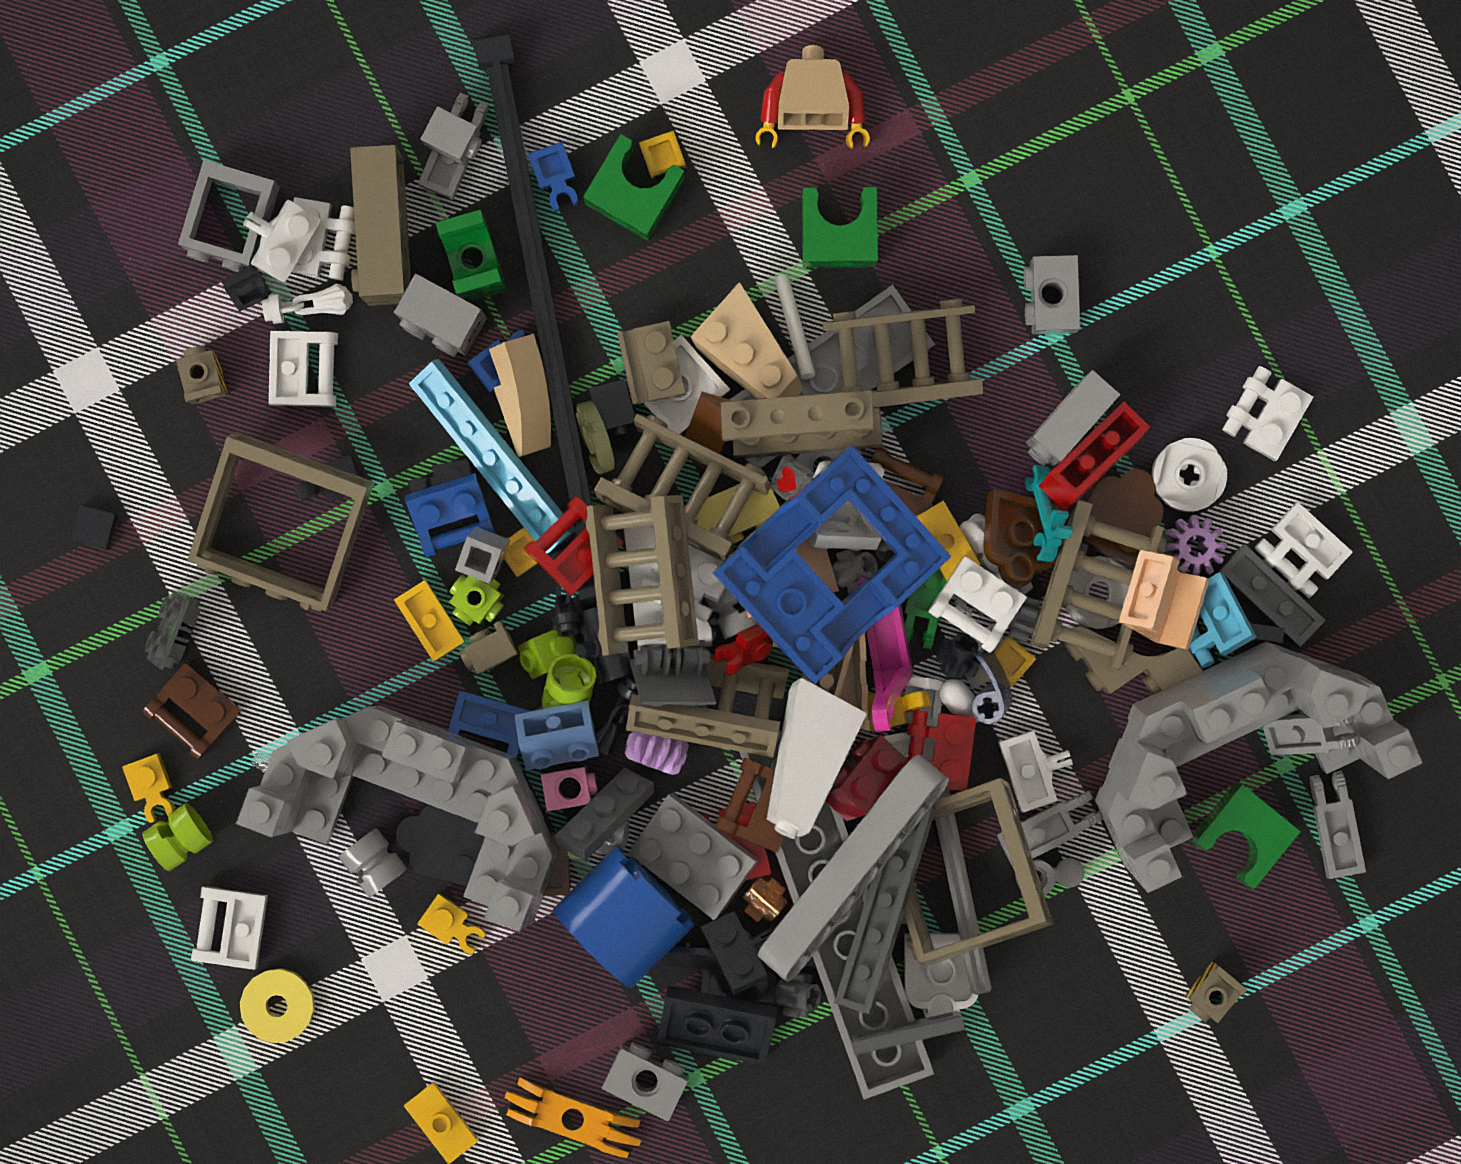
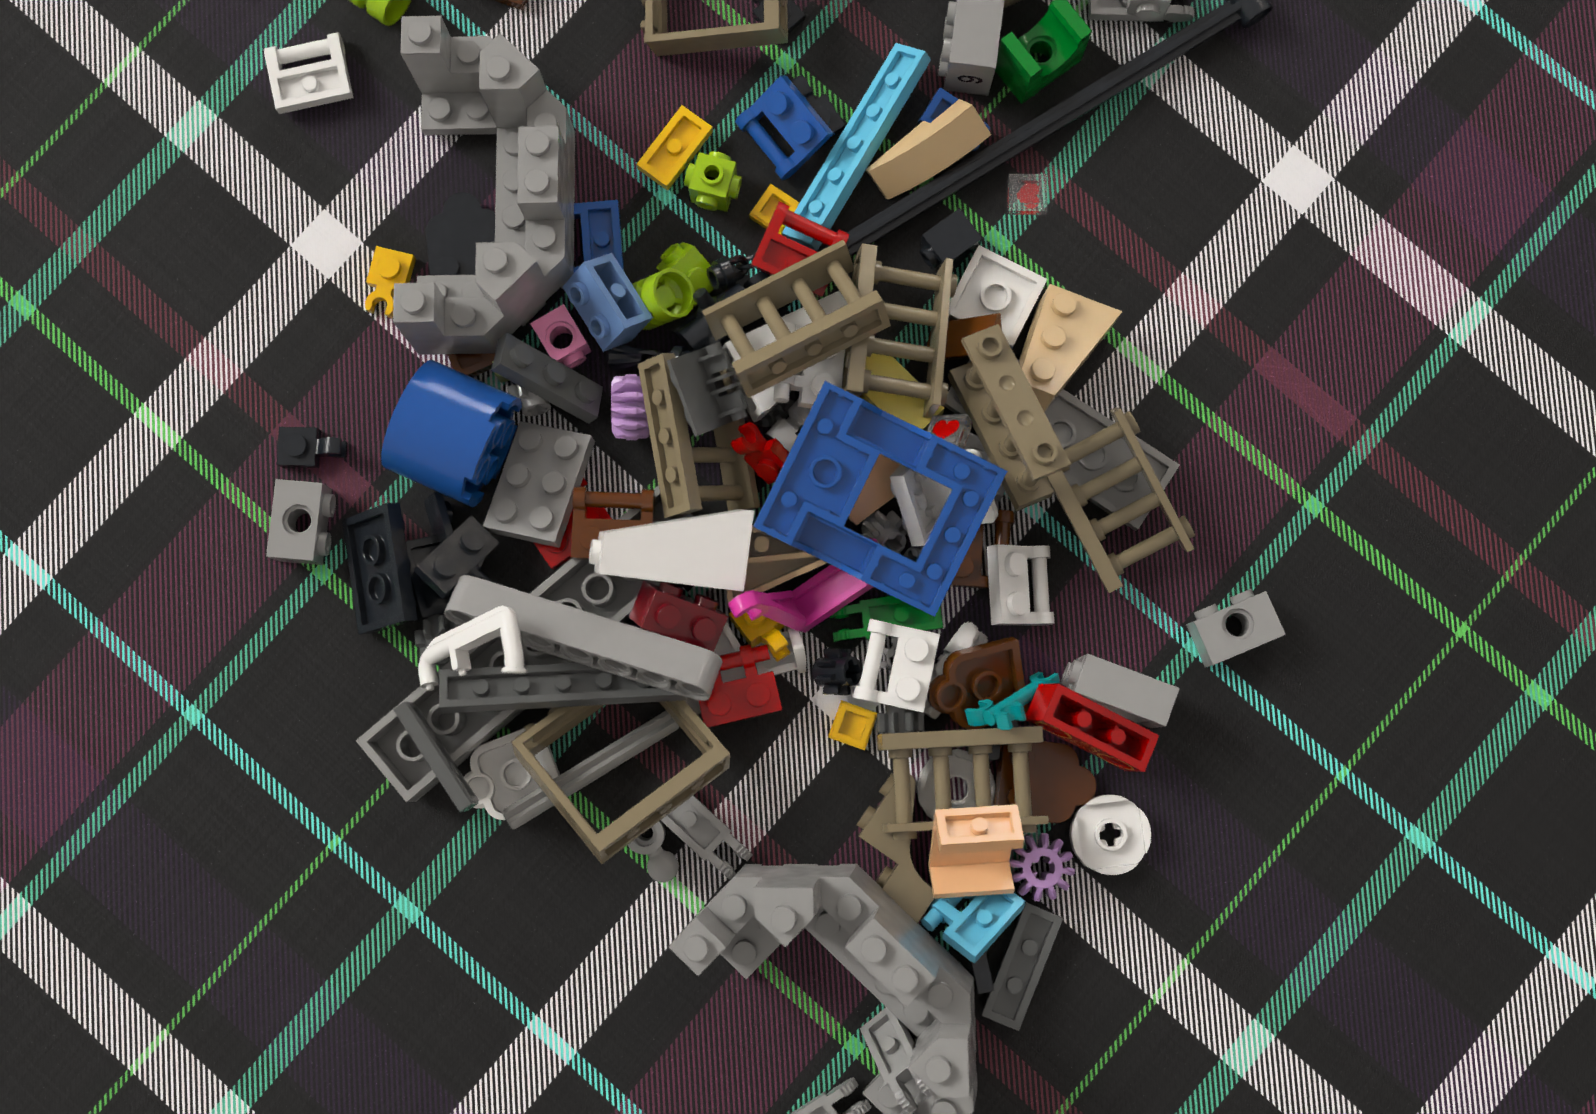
camera: 65 degrees right, 5 degrees down
(257, 1014) = (235, 130): light yellow tile -> none
(372, 862) = (420, 178): light grey wheel -> none
(441, 1122) = (191, 342): yellow plate -> none
(482, 555) = (757, 167): light grey brick -> none
(489, 649) = (669, 213): dark tan brick -> none
(553, 171) = (1154, 100): blue plate -> none
(577, 1054) = (304, 446): none -> black plate
(593, 319) = (1027, 194): none -> clear tile
(595, 437) = (913, 231): olive tile -> none
(595, 1122) = (245, 489): light orange piece -> none
(628, 205) = (1152, 185): green piece -> none
(651, 363) = (1007, 259): dark tan plate -> none
(662, 153) = (1213, 199): yellow tile -> none
(764, 899) = (522, 570): clear orange gear -> none
(794, 326) = (1099, 385): white bar -> none
(813, 97) = (1331, 315): tan torso -> none
(815, 972) = (469, 635): none -> white piece
(835, 245) = (1198, 400): green piece -> none
(943, 476) = (1011, 585): none -> white plate
(947, 532) = (954, 610): yellow plate -> none
(957, 698) = (794, 688): white cylinder -> none
(998, 690) = (817, 723): dark blue panel -> none
(1031, 770) = (751, 788): white plate -> none
(1211, 980) = (607, 1055): dark tan brick -> none
(1262, 826) = (782, 1048): green piece -> none
(1277, 418) = (1200, 903): white plate -> none
(1310, 541) = (1092, 984): white plate -> none

